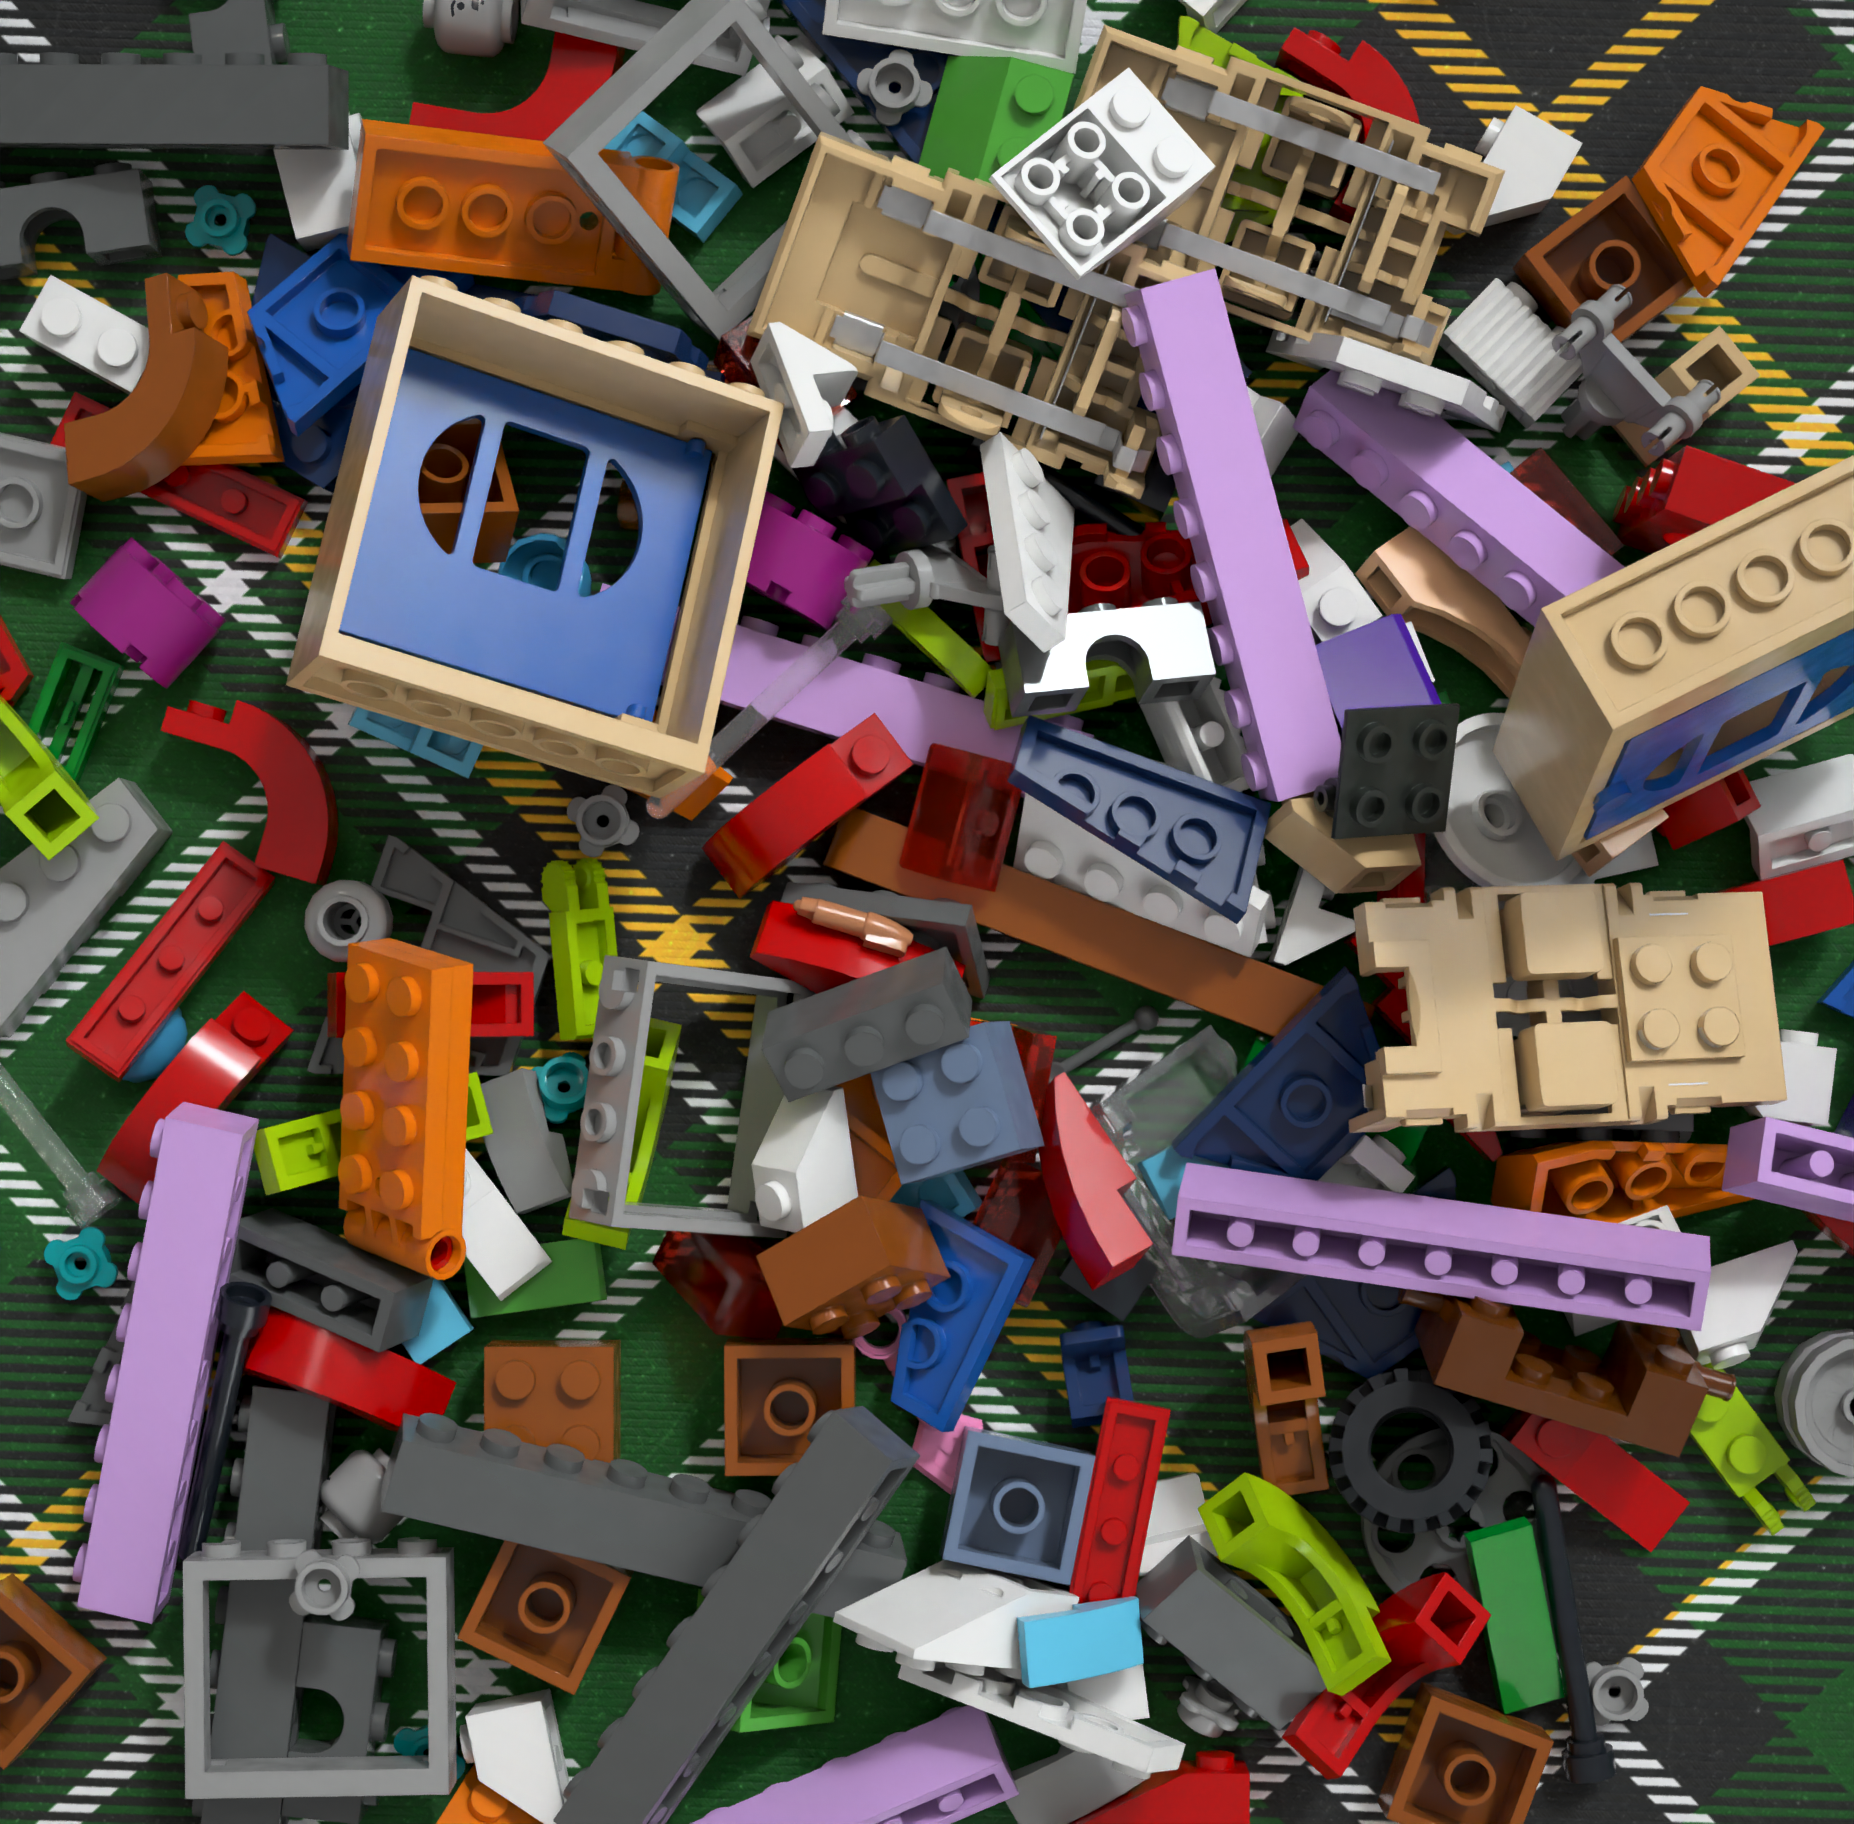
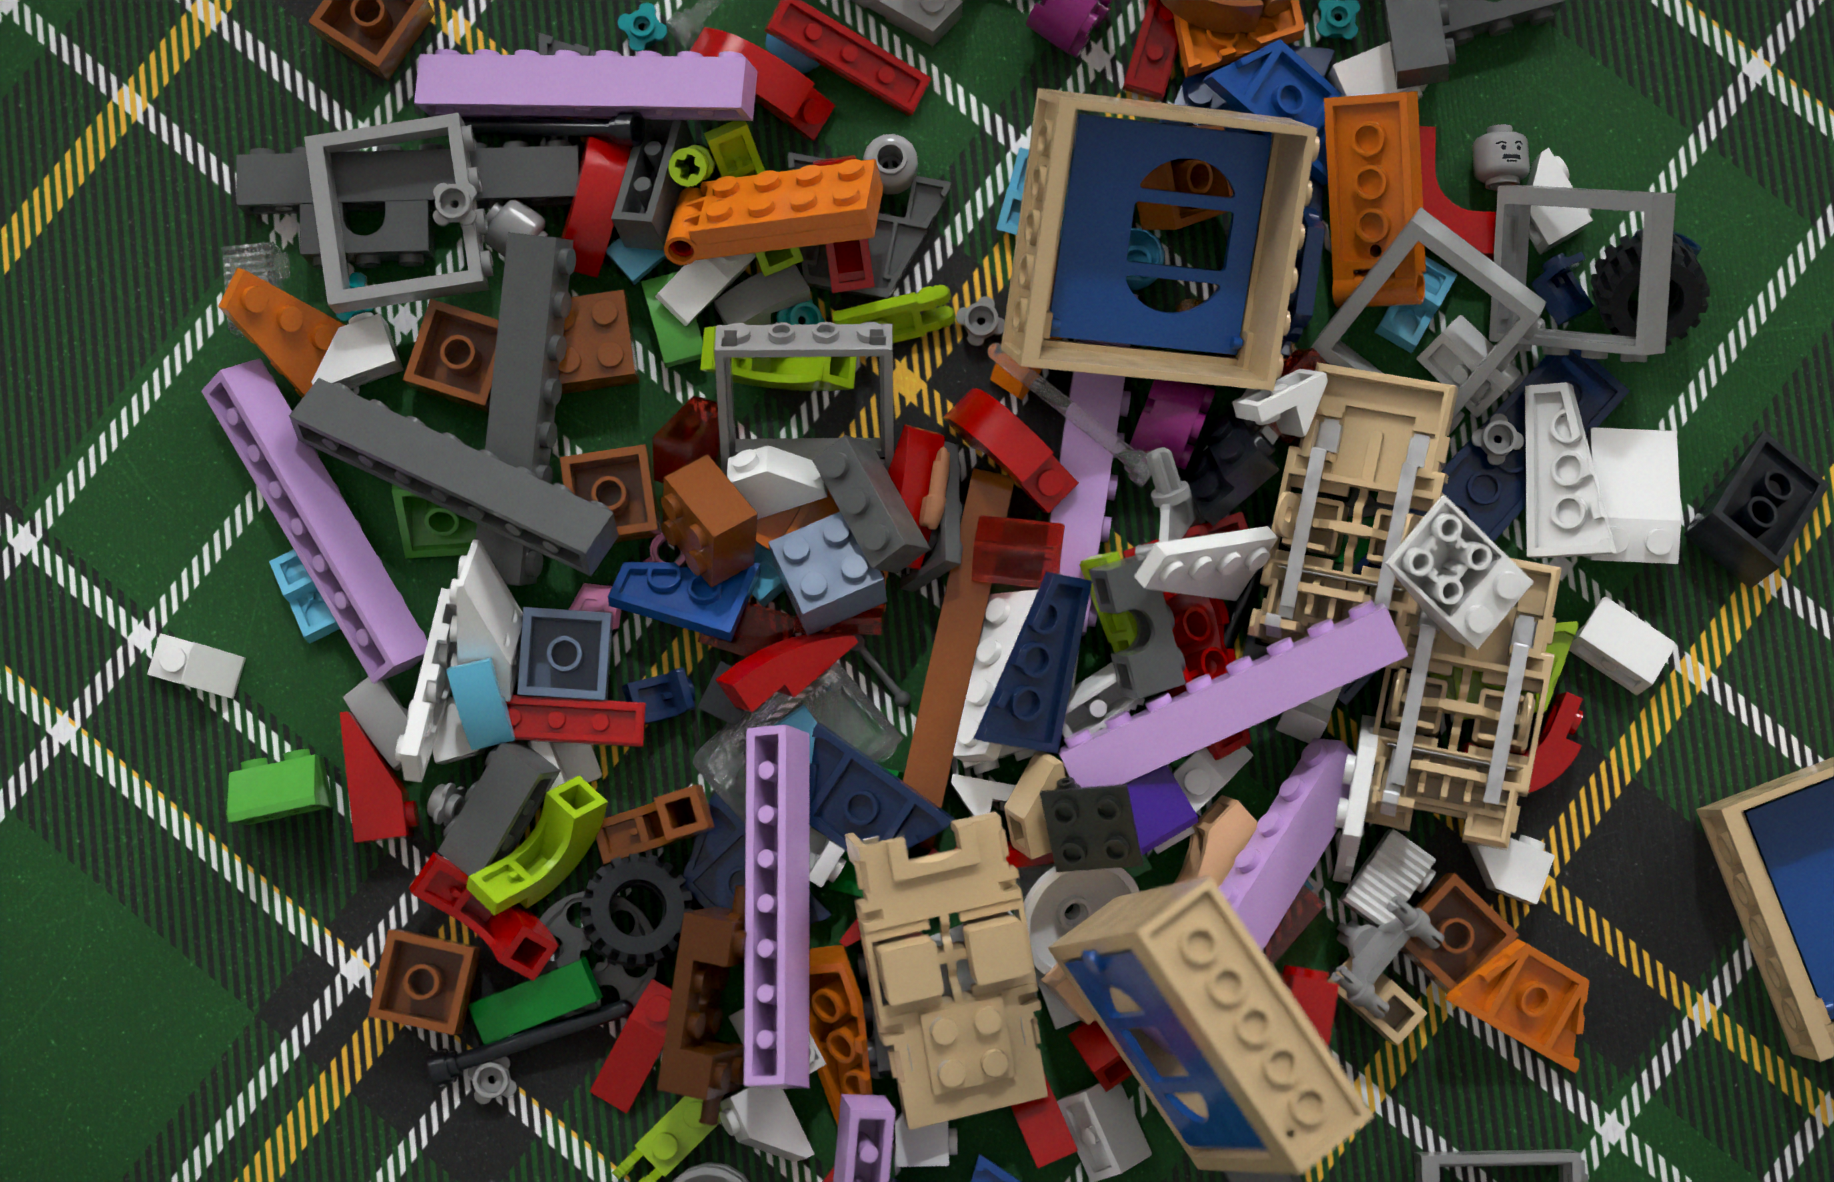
camera: 80 degrees right, 5 degrees down
(299, 794) = (969, 121): red arch -> none
(316, 1239) = (680, 171): none -> lime bush
(940, 645) = (1130, 521): lime beam -> none
(991, 113) = (1493, 501): bright green slope -> none

